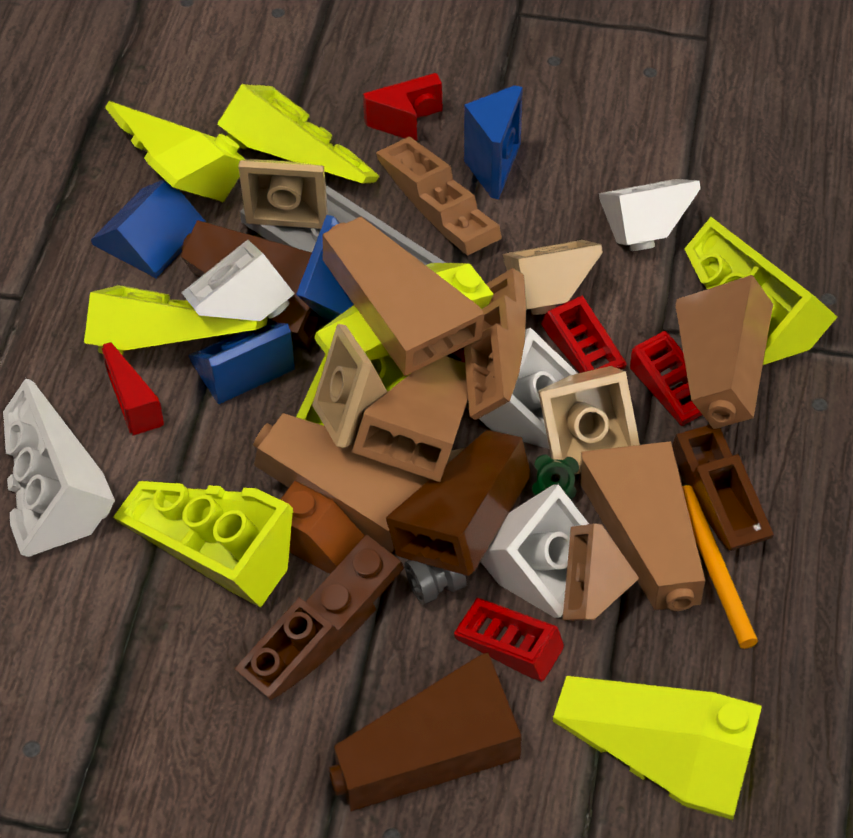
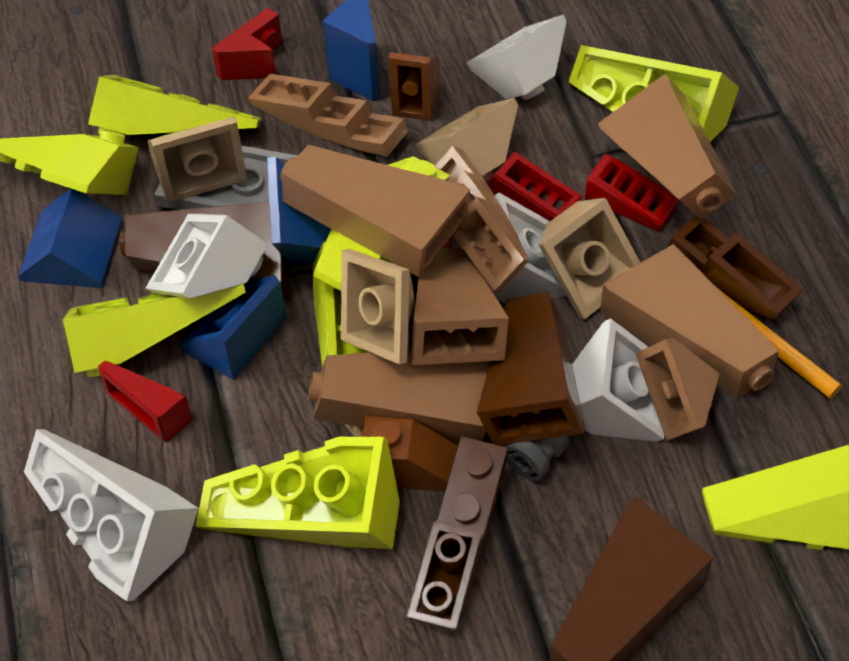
camera: 25 degrees left, 0 degrees up
(529, 195) = (414, 85): none -> dark orange slope
(536, 652) = (649, 491): red slope -> none
(564, 468) = (576, 310): dark green plate -> none

